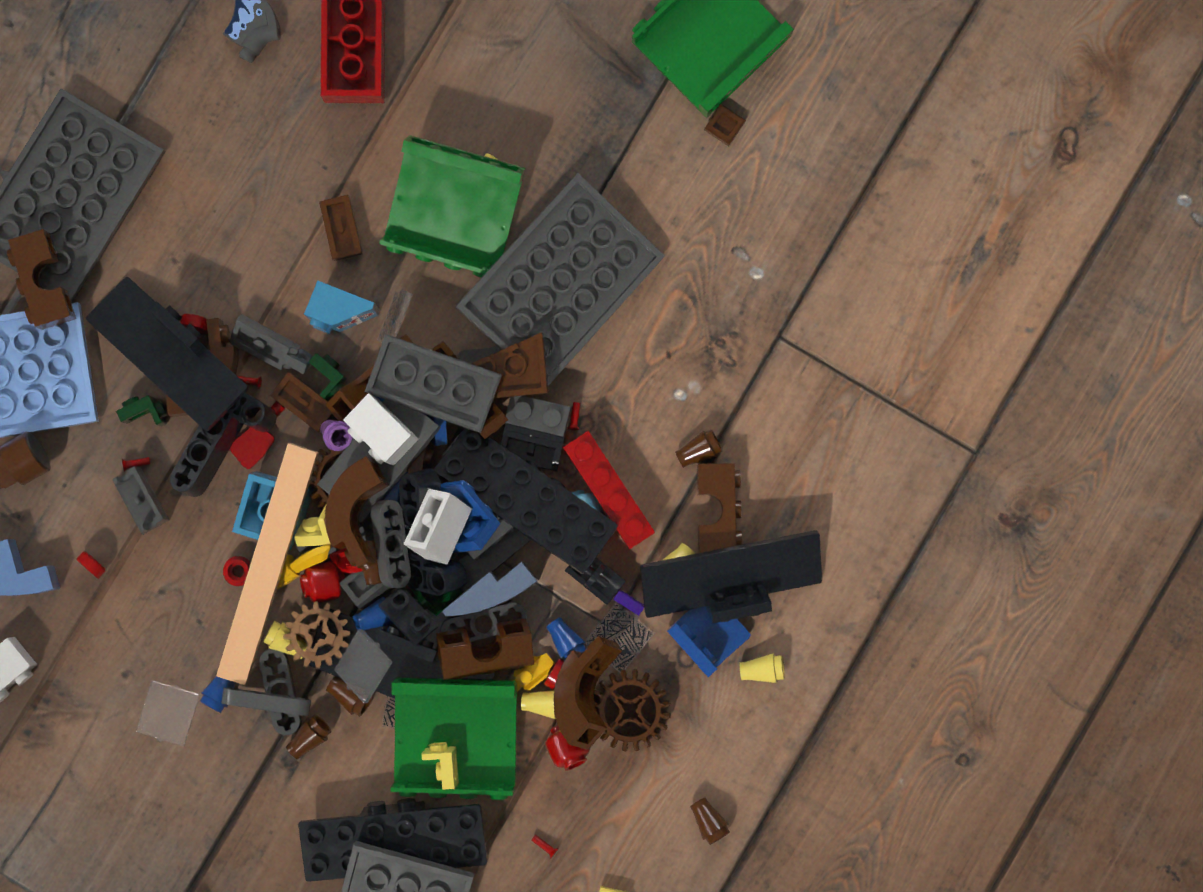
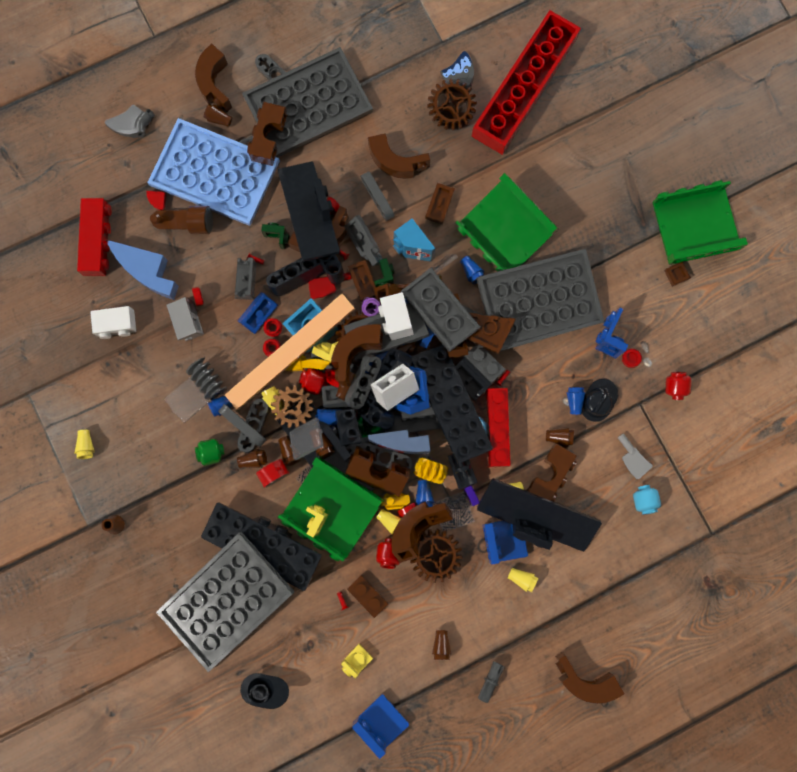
camera: 30 degrees right, 5 degrees down
(70, 860) = (84, 446): none -> light yellow cone
(94, 606) = (185, 319): none -> light grey hinge
(176, 670) = (205, 380): none -> dark grey piece
(186, 535) = (257, 312): none -> blue slope
(212, 538) = (272, 321): none -> red plate
(239, 212) = (393, 164): none -> reddish brown arch
(244, 763) = (209, 452): none -> green head
(248, 271) = (377, 196): none -> dark grey beam
(283, 59) = (459, 100): none -> reddish brown gear
(347, 738) = (272, 473): none -> red piece
(399, 660) = (327, 450): none -> reddish brown cone
(442, 294) = (471, 269): none -> blue cone
(554, 603) = (431, 470): none -> yellow gear
(574, 818) = (367, 596): none -> reddish brown plate
(689, 385) = (575, 399): none -> blue cone
(696, 281) = (607, 344): none -> blue bracket
(722, 366) = (599, 400): none -> black piece
(731, 281) = (631, 358): none -> red tile
(801, 827) = (491, 682): none -> dark grey axle
(814, 282) = (678, 385): none -> red head
(816, 420) = (633, 459): none -> light grey piece
(862, 463) = (647, 500): none -> medium azure head
(938, 756) = (594, 691): none -> reddish brown arch

